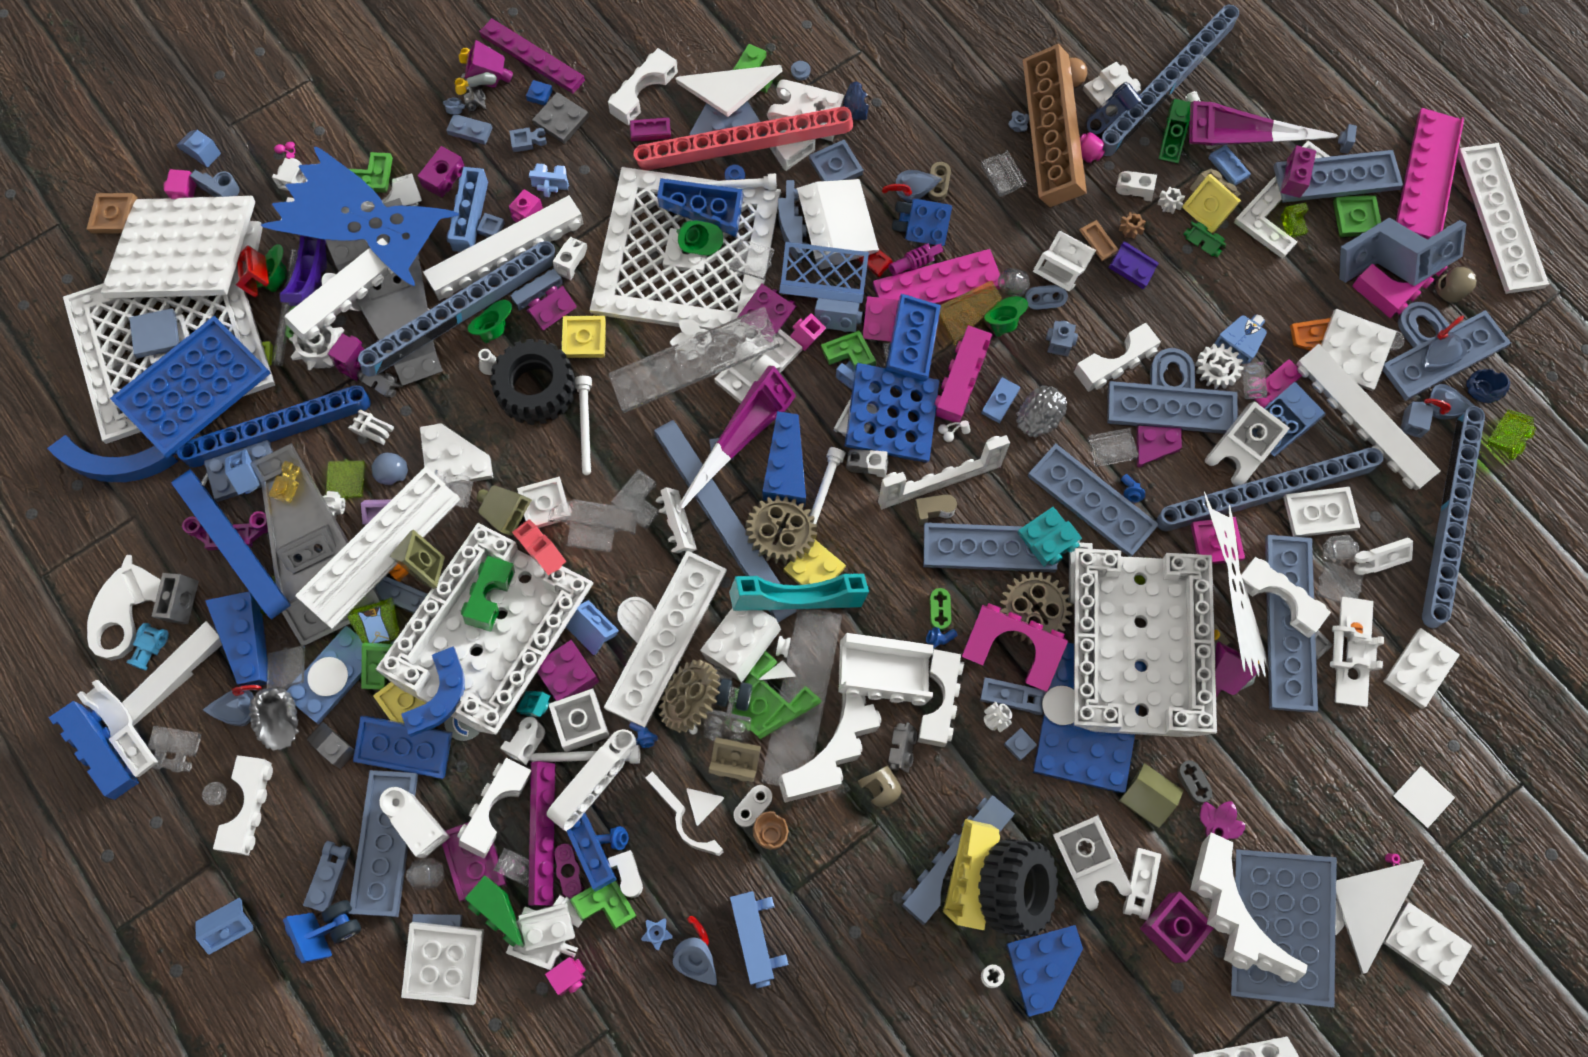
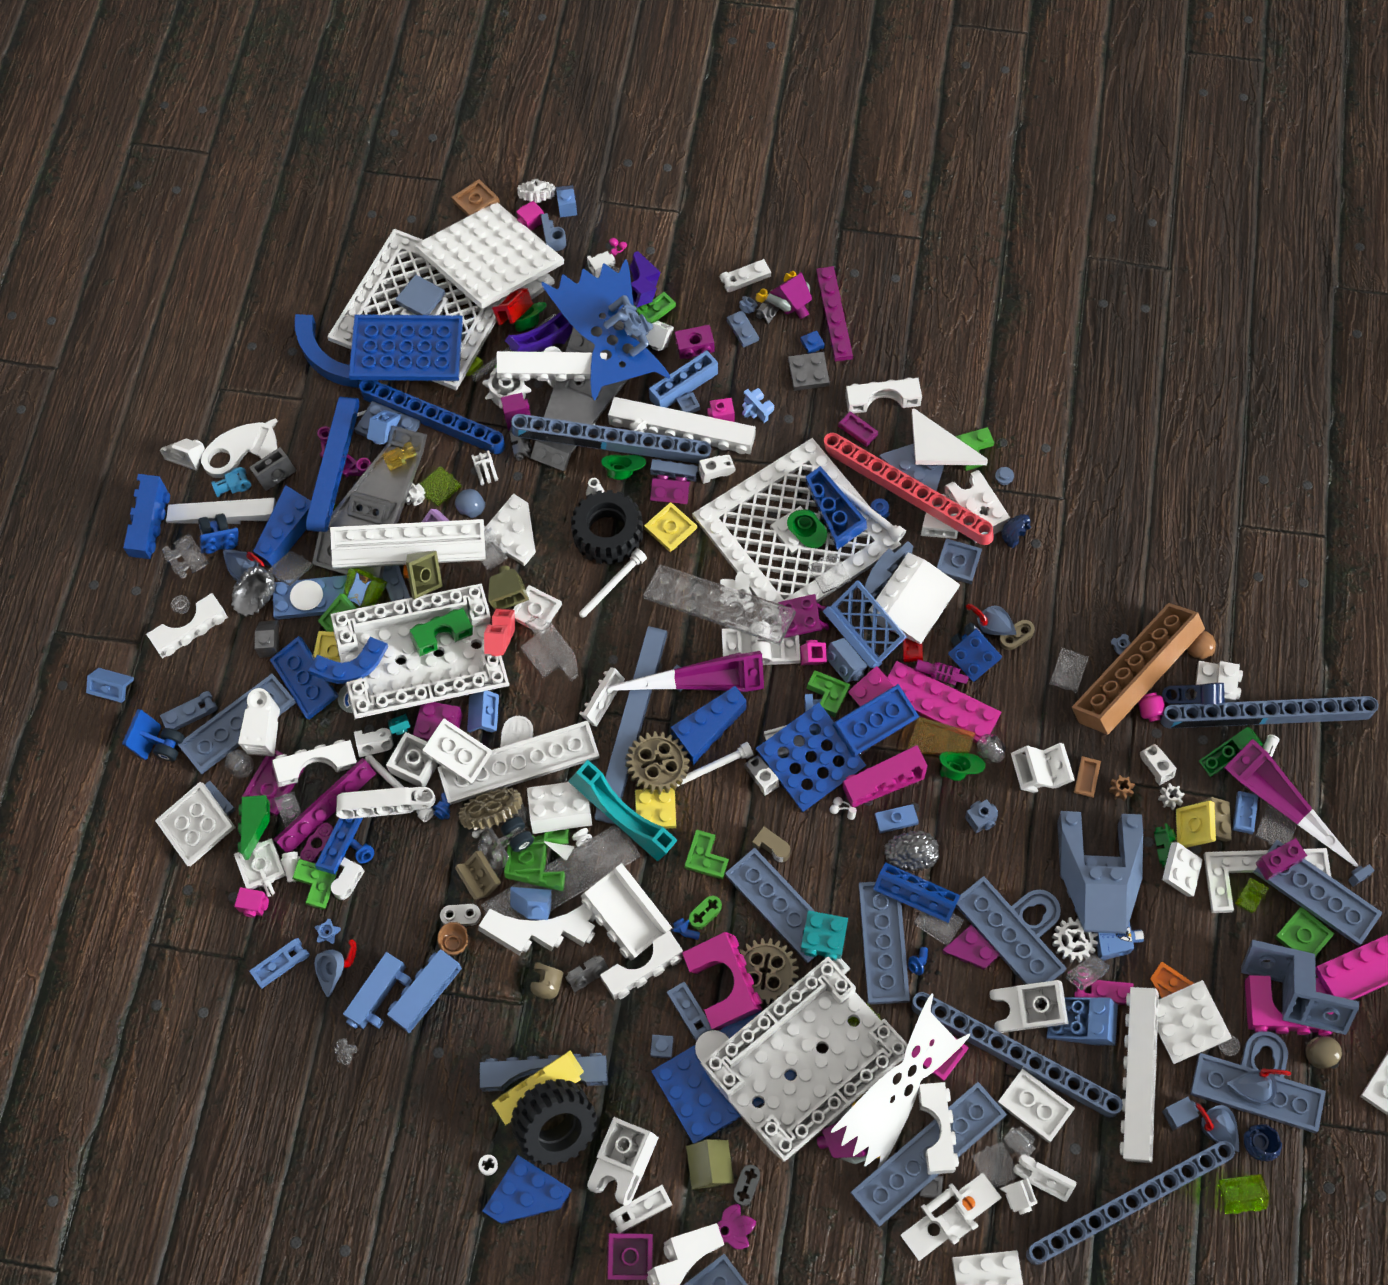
camera: 50 degrees right, 5 degrees down
(70, 661) = (185, 453): none -> white slope
(122, 733) = (167, 523): white piece -> none
(163, 160) = (536, 190): none -> white gear
(189, 700) = (216, 534): none -> blue plate
(344, 152) = (645, 279): none -> dark purple arch
(385, 191) = (634, 323): none -> sand blue plate
(425, 84) = (745, 275): none -> white plate
(472, 276) = (639, 425): none -> white plate
(524, 139) = (768, 364): sand blue plate -> none
(546, 926) = (269, 861): white plate -> none
(611, 677) = (457, 751): none -> white plate
(632, 499) = (589, 656): clear plate -> none
(645, 1001) = (279, 963): none -> medium blue plate
(702, 804) = (434, 884): white sticker -> none
(711, 847) = (413, 874): white piece -> none
(781, 1012) = (344, 1051): none -> clear plant
(794, 895) = (424, 991): none -> medium blue brick
(806, 736) = (531, 902): none -> medium blue slope
(893, 572) = (701, 860): none -> bright green plate
(896, 489) = (839, 846): white plate -> none
(997, 717) = (664, 1013): white gear -> none
(1045, 297) = (1004, 780): sand blue plate -> none
(1080, 439) = (915, 893): none -> blue fence
(1096, 370) = (983, 862): white arch -> none
(1133, 265) = (1093, 815): dark purple plate -> none
(1195, 307) = (1101, 886): none -> sand blue wedge
(1236, 244) = (1182, 869): none -> white plate
(1257, 158) = (1275, 827): none -> clear piece
(1382, 587) = (1020, 1196): none -> white window

